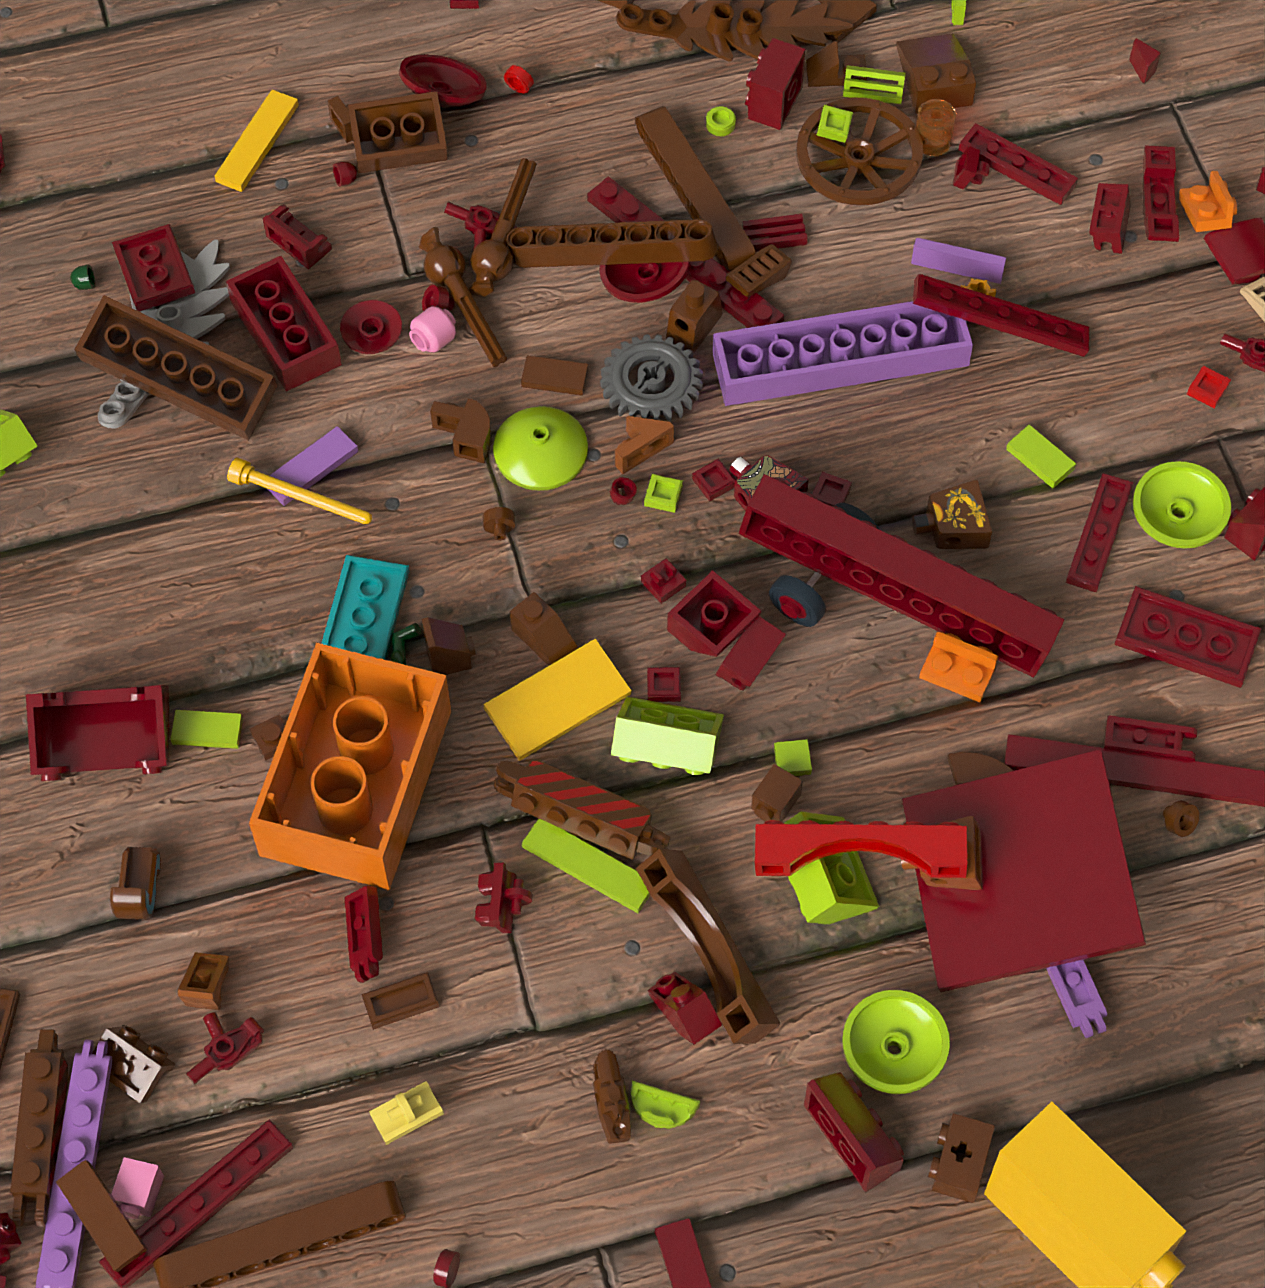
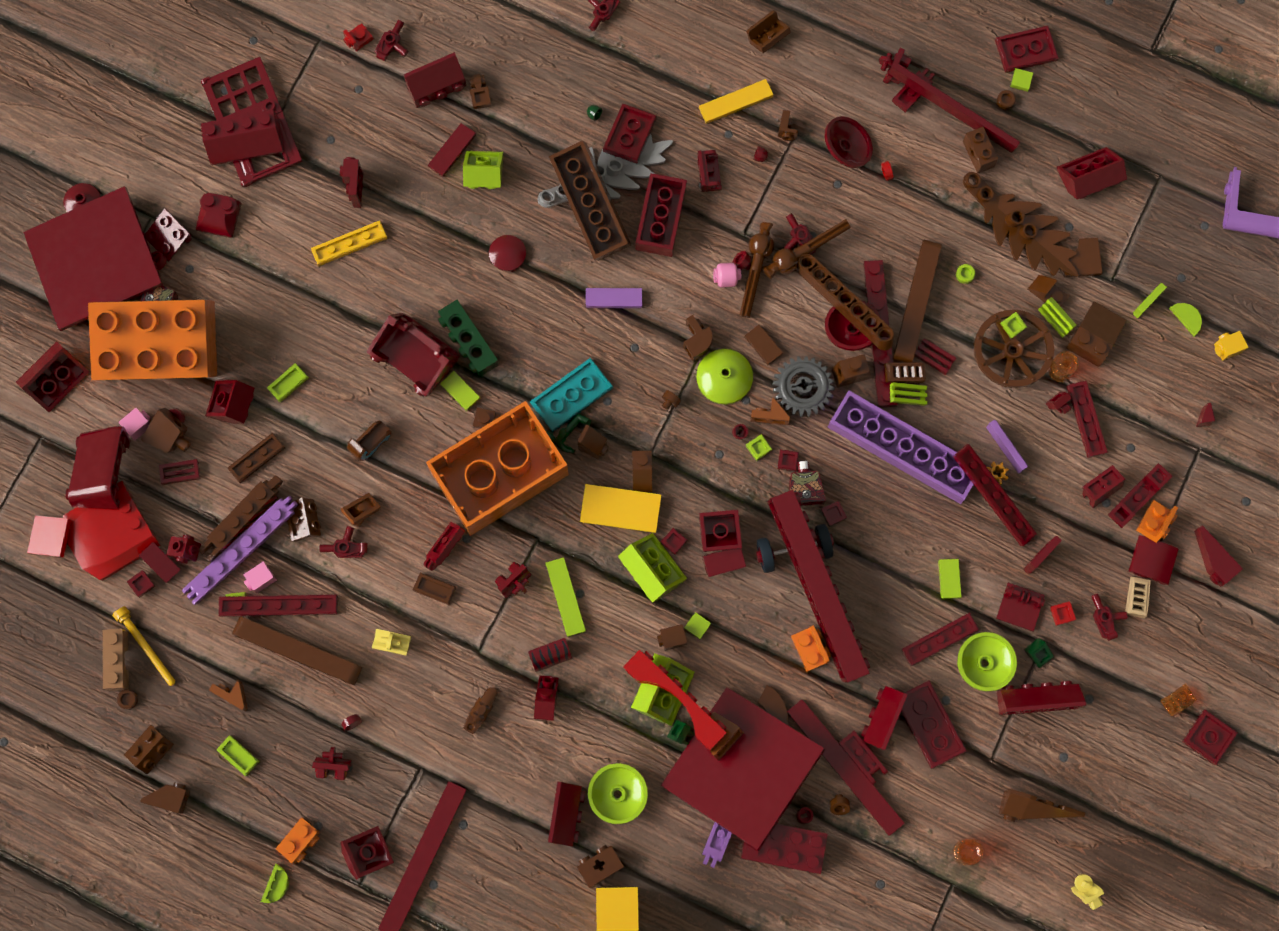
camera: 40 degrees right, 15 degrees up
(101, 1215) = (233, 579): reddish brown tile -> none
(117, 519) = (507, 253): none -> dark red dish
(147, 642) = (455, 312): none -> dark green brick
(225, 38) = (767, 32): none -> reddish brown bracket
(242, 473) = (578, 277): yellow piece -> none
(367, 317) = (703, 241): dark red dish -> none
(397, 132) = (800, 155): reddish brown slope -> none
(580, 808) = (582, 570): reddish brown hinge -> none
(637, 949) = (550, 655): none -> dark red brick
(662, 1107) = (499, 732): lime tile -> none
(663, 580) = (719, 491): dark red tile -> none
(737, 994) = (589, 645): reddish brown arch -> none
(775, 83) = (1006, 278): dark red brick -> none
(782, 288) = (922, 394): none -> lime tile
(898, 901) = (679, 732): none -> dark green tile
(956, 518) = (878, 576): reddish brown torso -> none
(1121, 337) = (1042, 554): none -> dark red tile
(1132, 663) = (884, 717): none -> dark red slope
(1154, 419) = (1020, 607): none -> dark red hinge
(1154, 861) = (804, 820): none -> dark red hinge
(1177, 922) = (790, 849): none -> dark red brick
(1226, 452) = (1039, 652): none -> dark green slope

